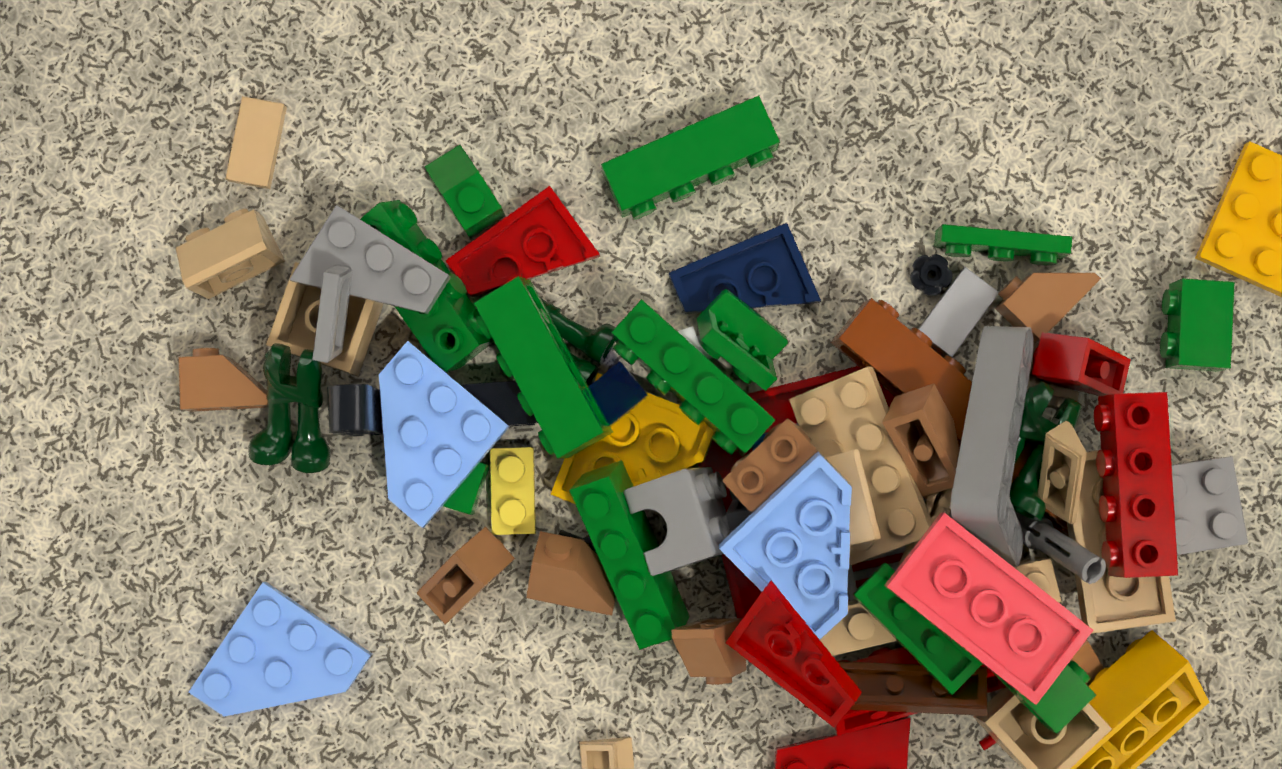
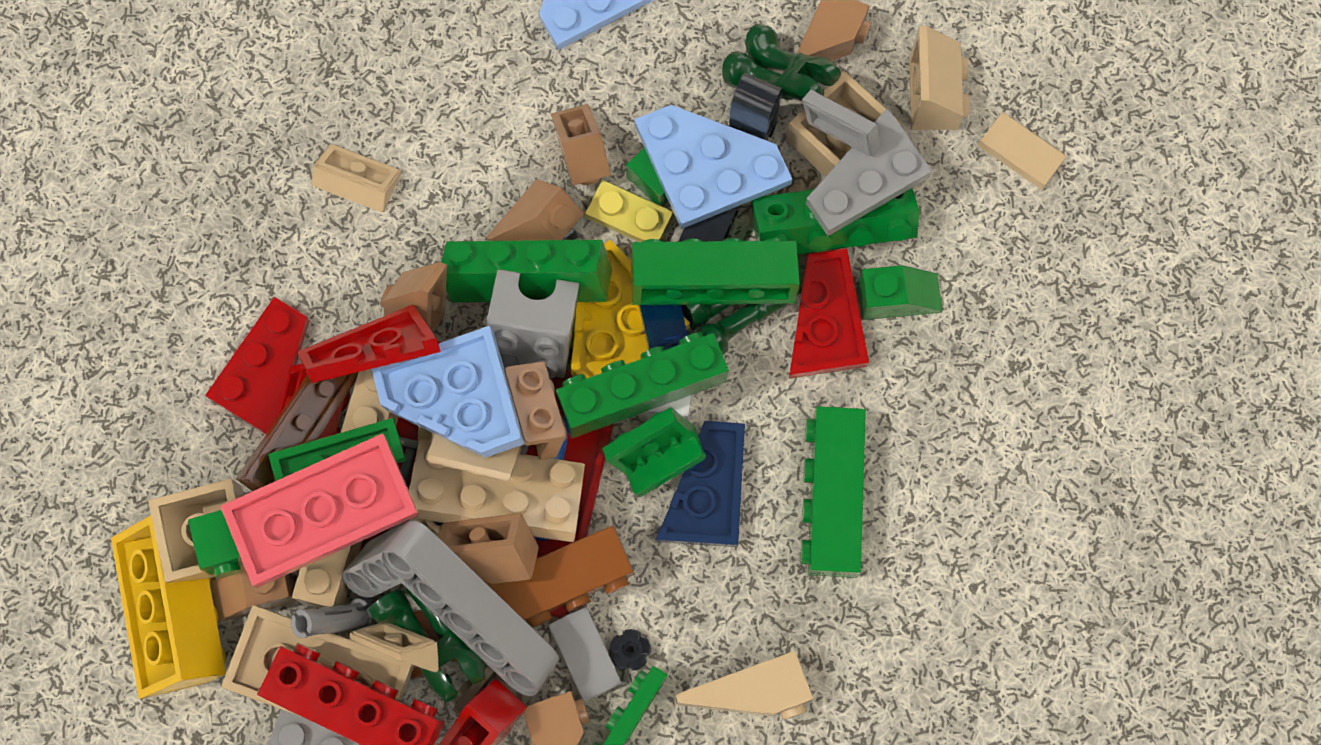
camera: 120 degrees right, 10 degrees down
(907, 138) = (758, 690): none -> tan slope

